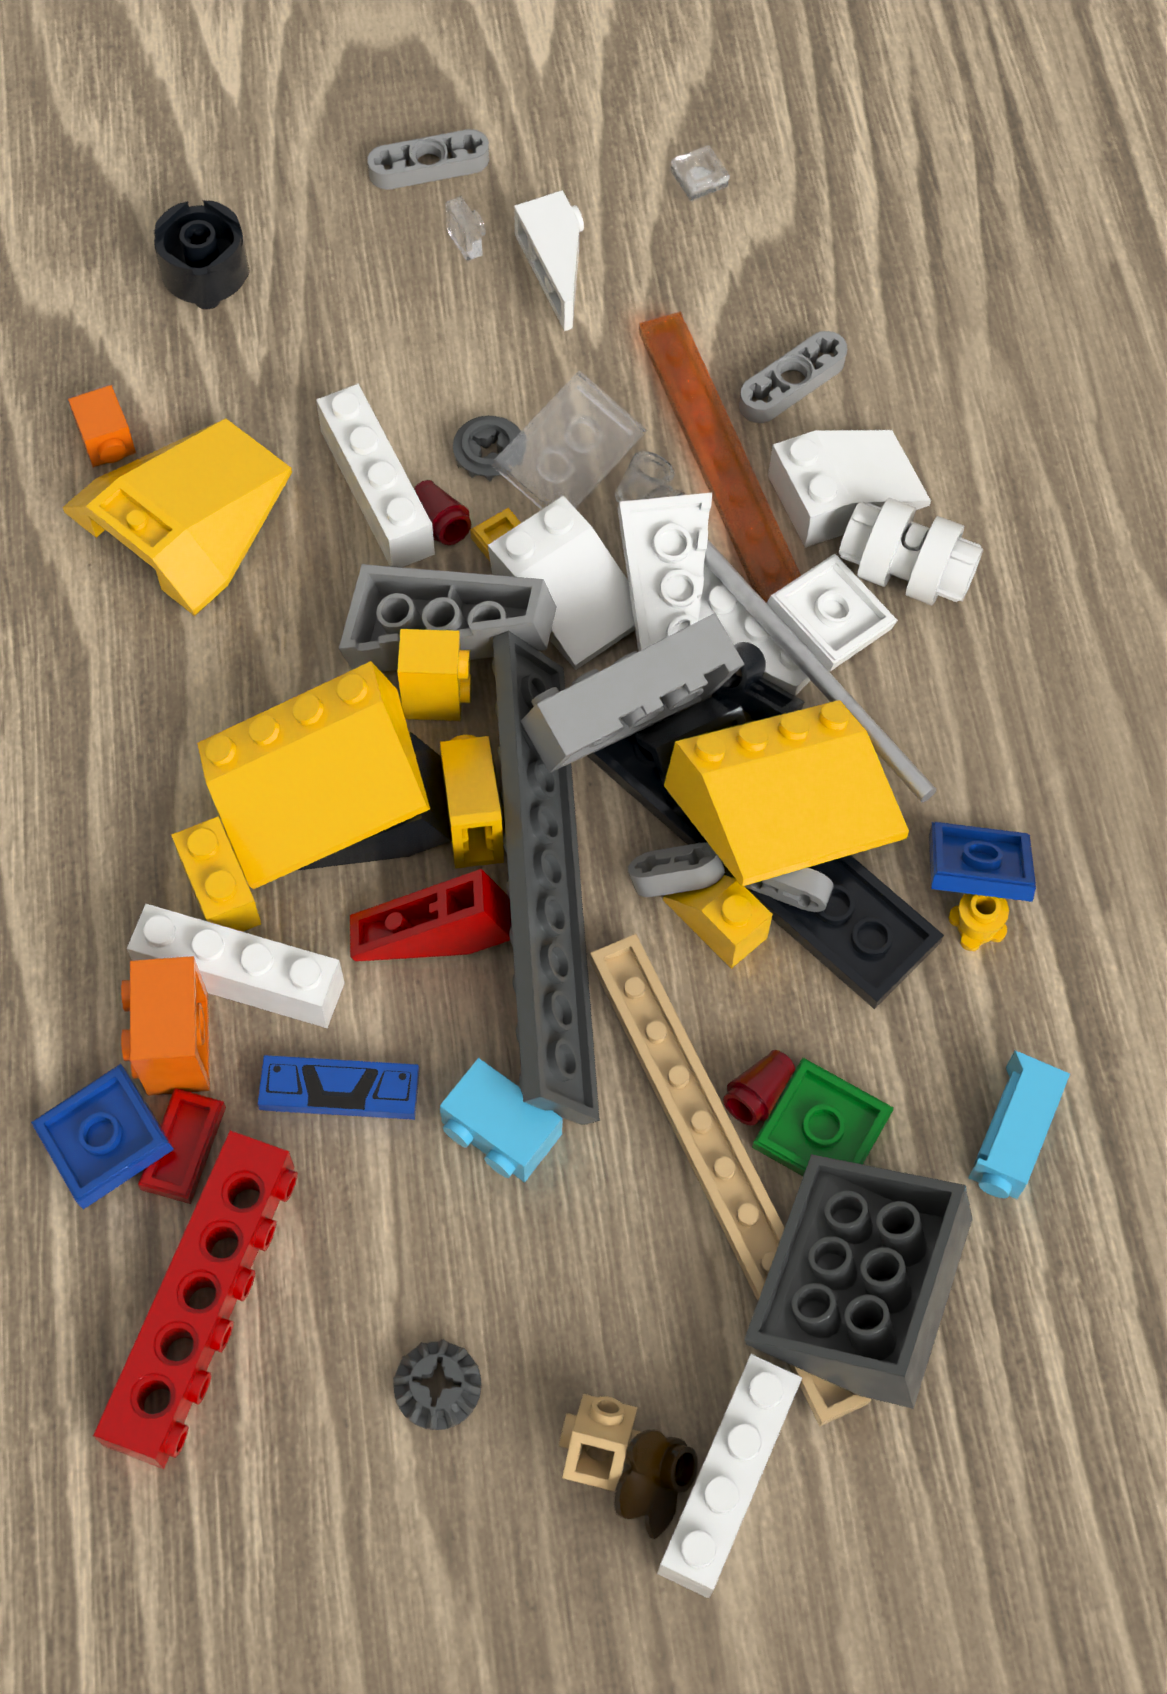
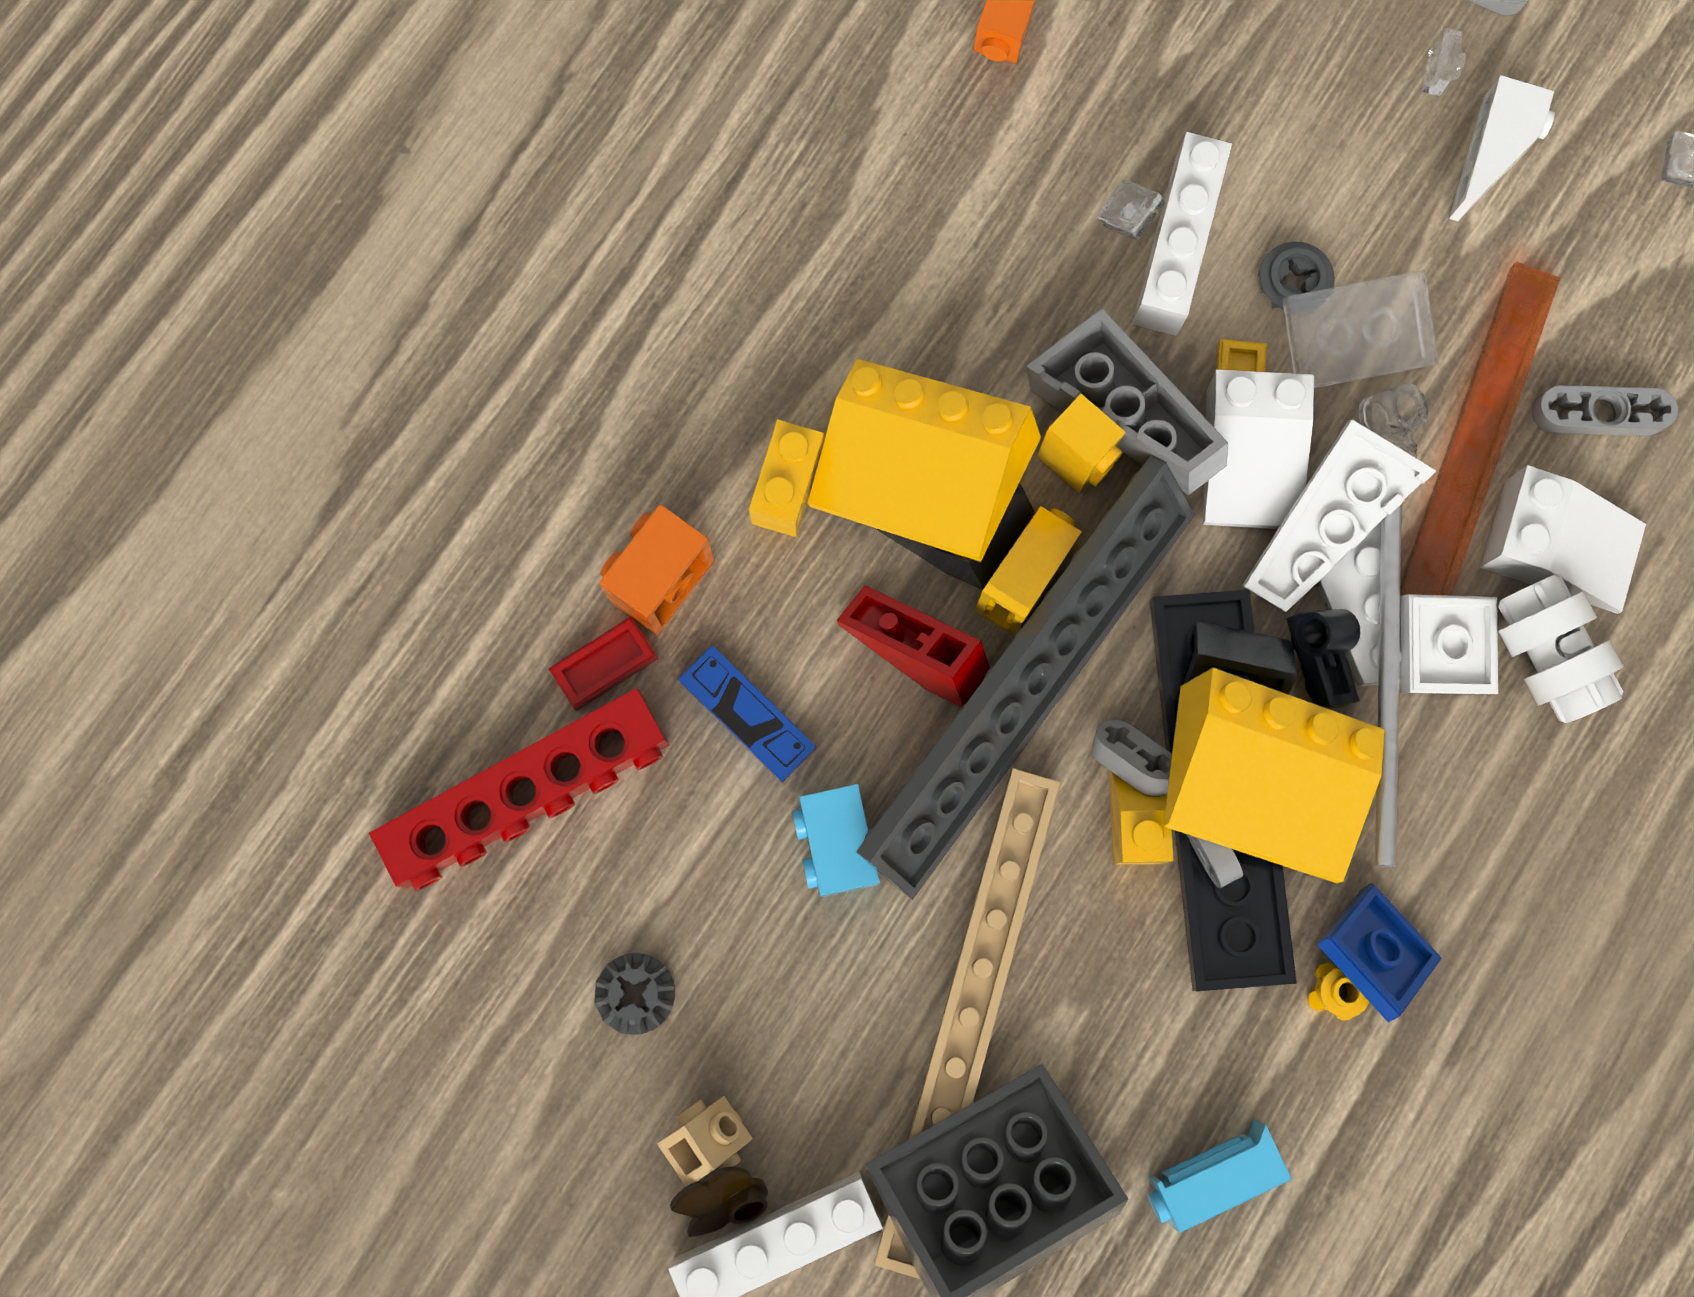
camera: 40 degrees right, 15 degrees up
(102, 1136) = (551, 611): blue tile -> none
(188, 508) = (1015, 146): yellow wedge -> none
(243, 965) = (747, 559): white brick -> none
(320, 487) = (1131, 209): none -> clear plate
(448, 516) = (1209, 307): dark red cone -> none
(631, 693) = (1218, 595): light grey wedge -> none
(757, 1089) = (1049, 978): dark red cone -> none
(821, 1118) = (1076, 1042): green tile -> none

